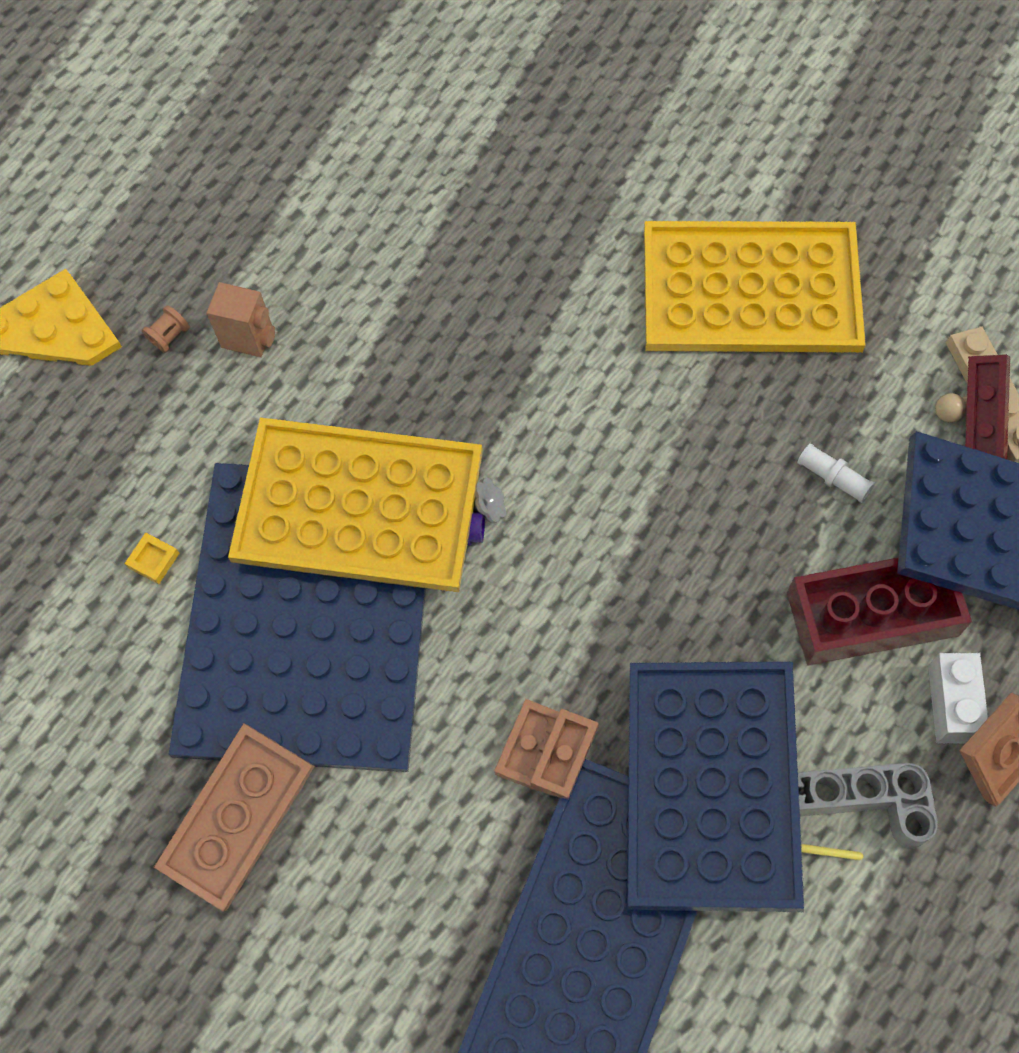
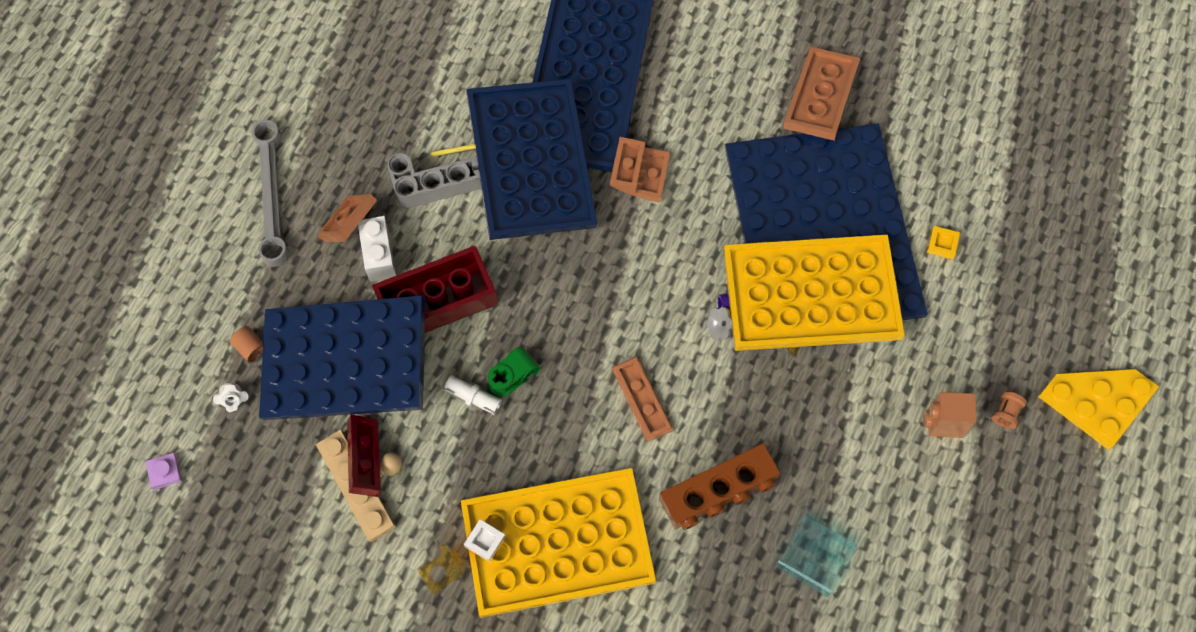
camera: 165 degrees right, 0 degrees up
(451, 223) = (816, 556): none -> clear light blue slope
(531, 319) = (755, 461): none -> dark orange brick
(614, 432) = (642, 399): none -> nougat tile
(776, 492) = (513, 368): none -> green piece
(842, 285) = (484, 540): none -> white plate
(885, 281) = (450, 562): none -> clear yellow bracket

